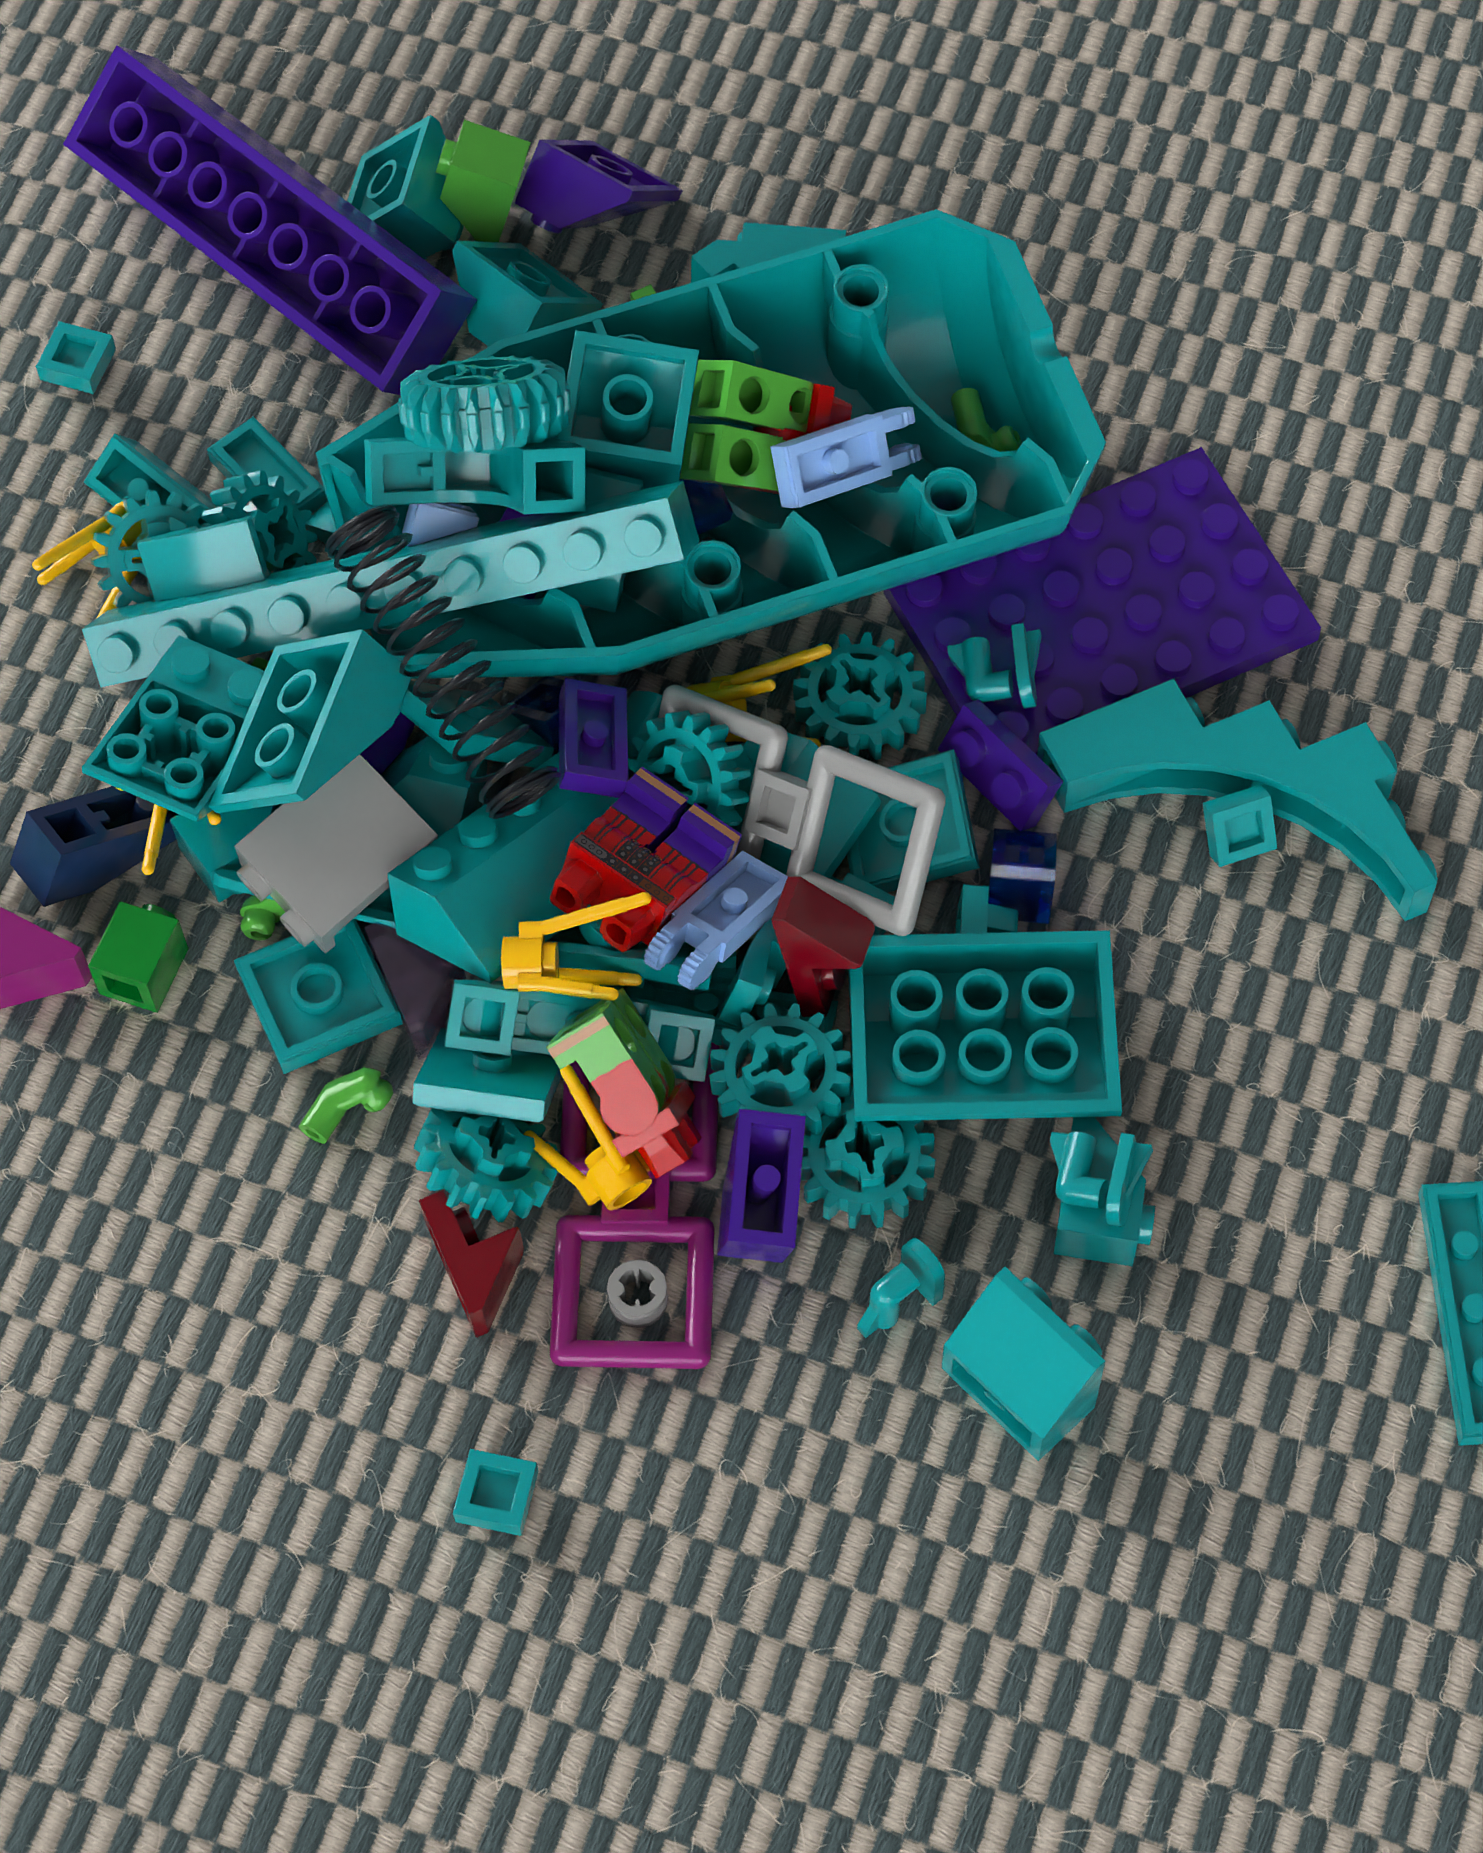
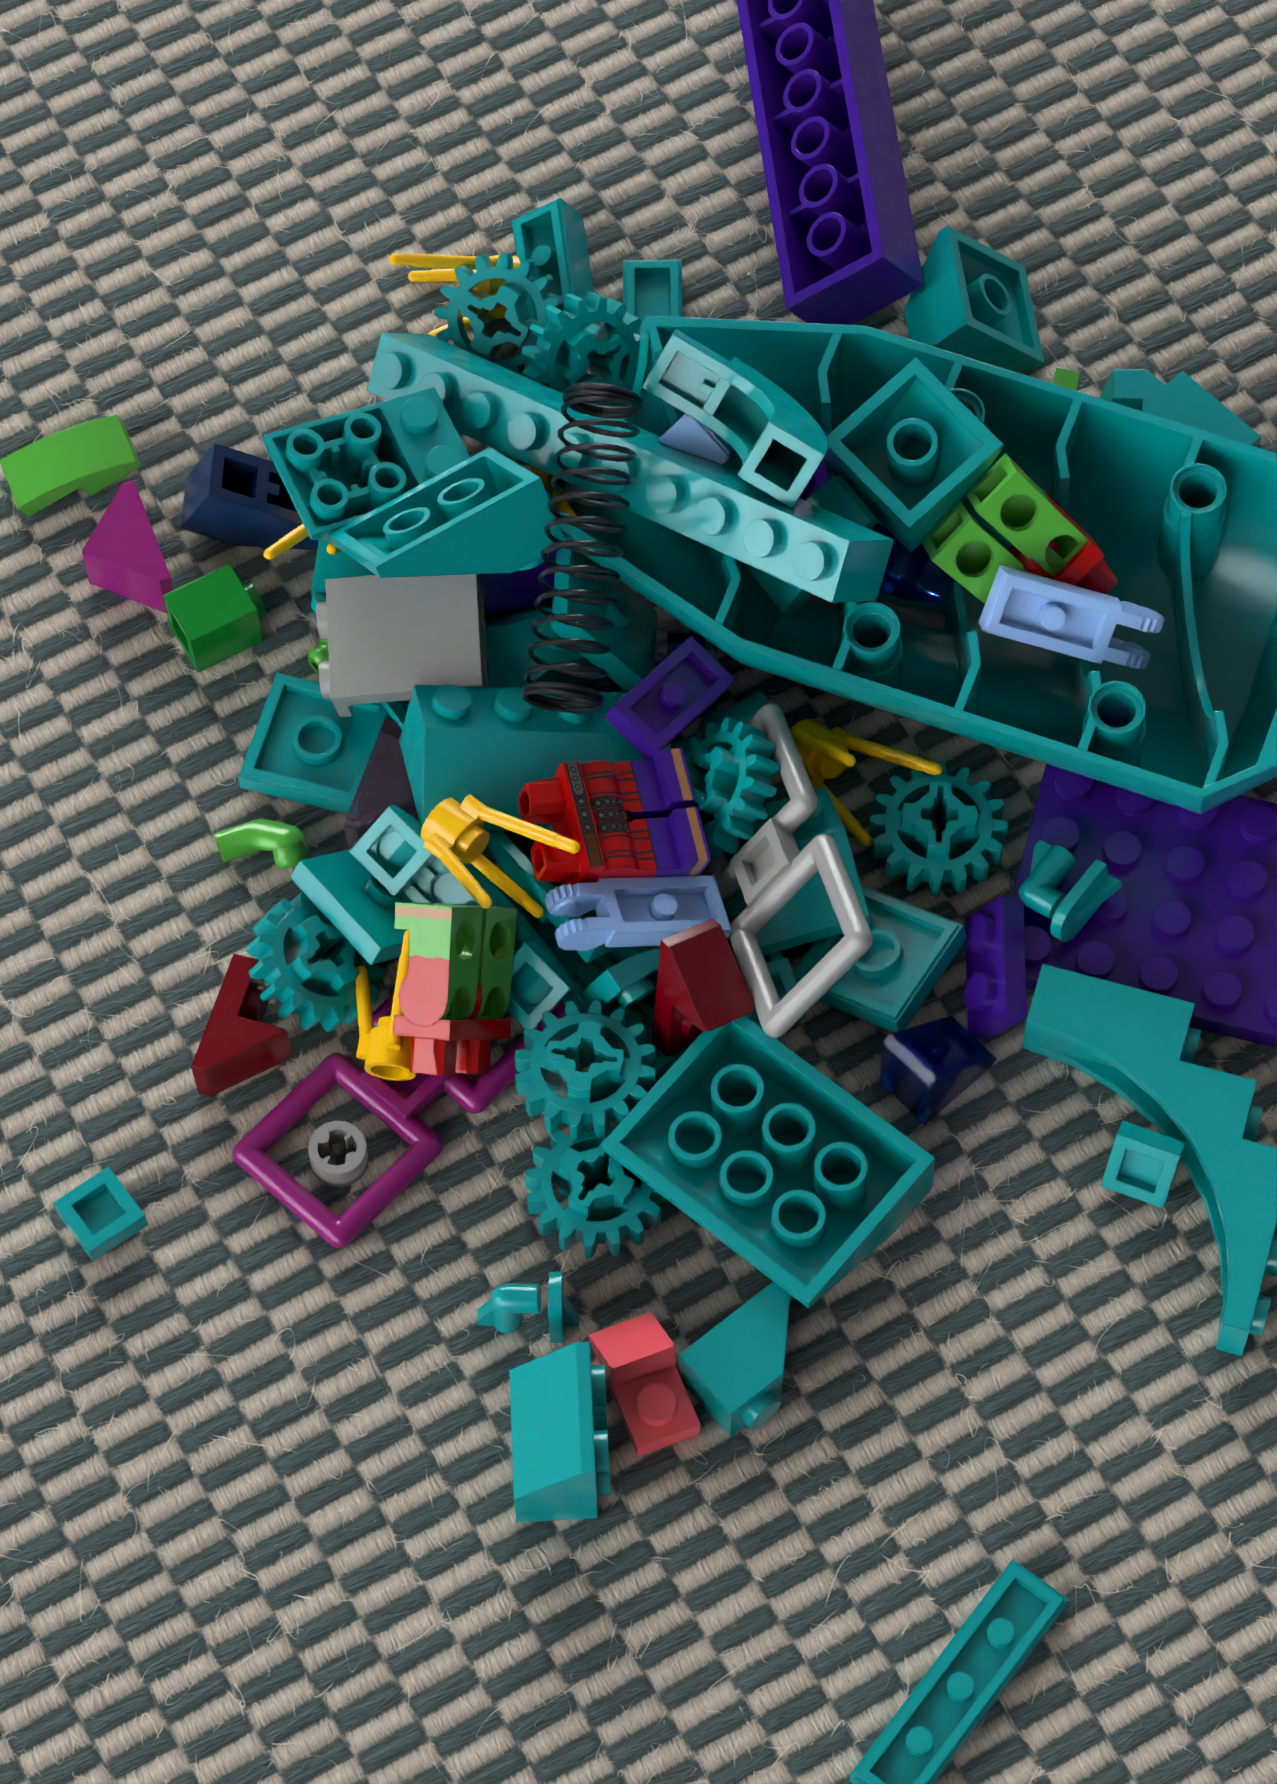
camera: 40 degrees right, 0 degrees up
(76, 357) = (590, 116): teal plate -> none
(203, 559) = (514, 343): teal slope -> none
(402, 191) = (964, 164): teal slope -> none
(481, 178) = (1018, 190): bright green slope -> none
(484, 404) = (784, 365): teal gear -> none
(587, 185) = (1118, 254): dark purple slope -> none
(762, 1187) = (488, 1142): dark purple slope -> none
(972, 422) = (1233, 690): bright green arm -> none
(978, 916) = (859, 1076): teal tile -> none
(1027, 1252) = (645, 1383): none -> coral slope
(1075, 1187) = (745, 1361): teal piece -> none

